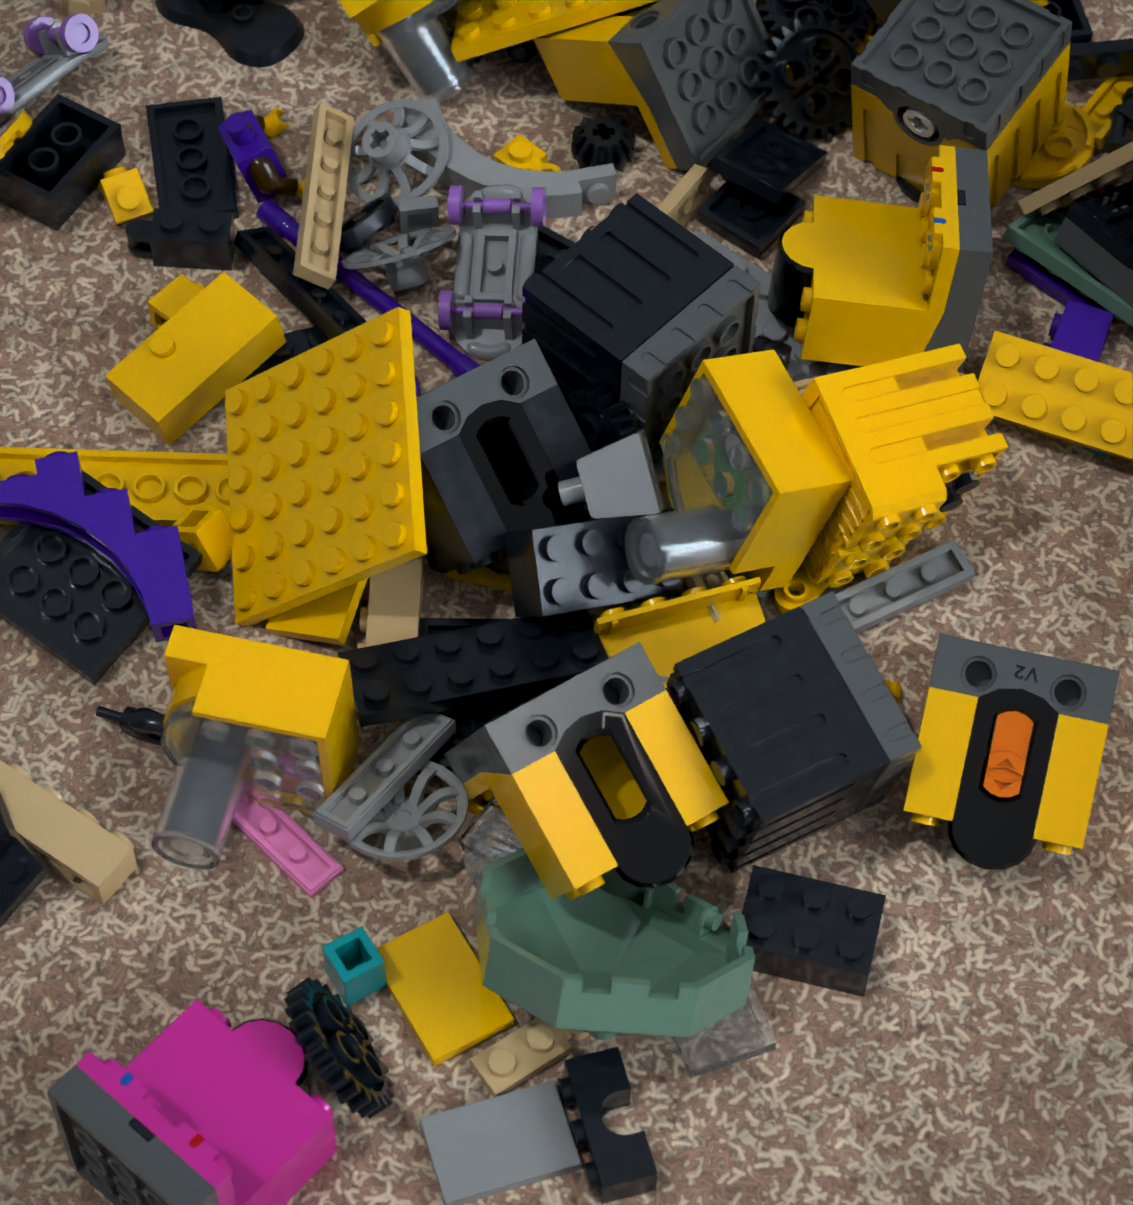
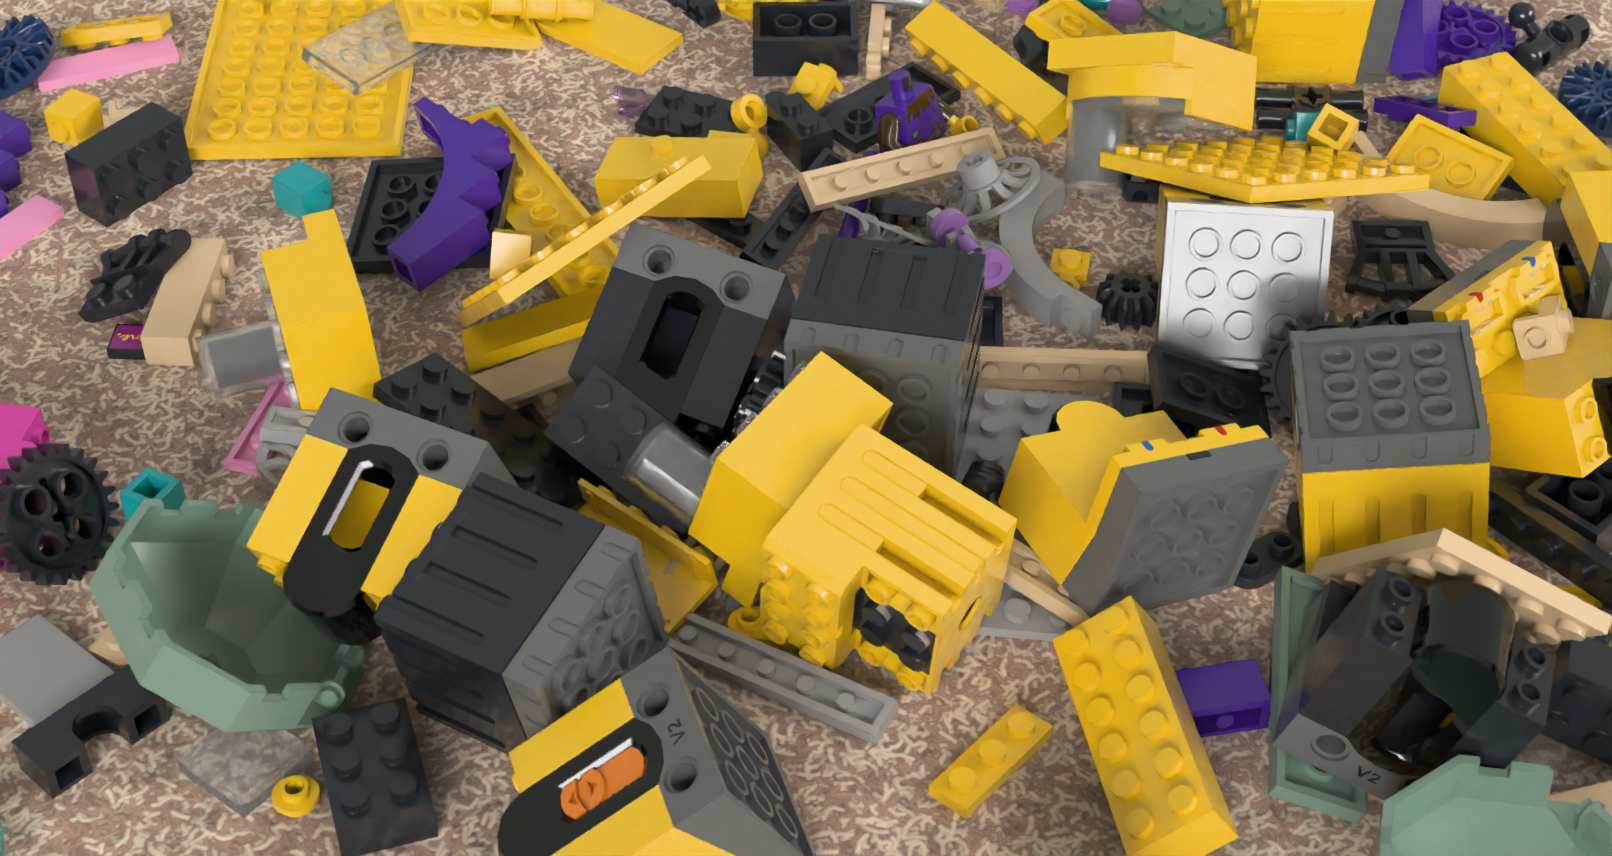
camera: 60 degrees right, 15 degrees down
(25, 341) = (631, 101): none -> plate
(64, 903) = (126, 342): none -> tile
(82, 95) = (878, 40): none -> tan plate
(90, 305) = (685, 114): none -> black plate
(146, 263) = (749, 115): none -> yellow plate
(223, 62) = (989, 72): none -> yellow brick
(616, 480) = (710, 403): light grey torso -> none
(776, 1010) = (296, 804): none -> yellow plate
(1038, 516) = (990, 761): none -> yellow plate

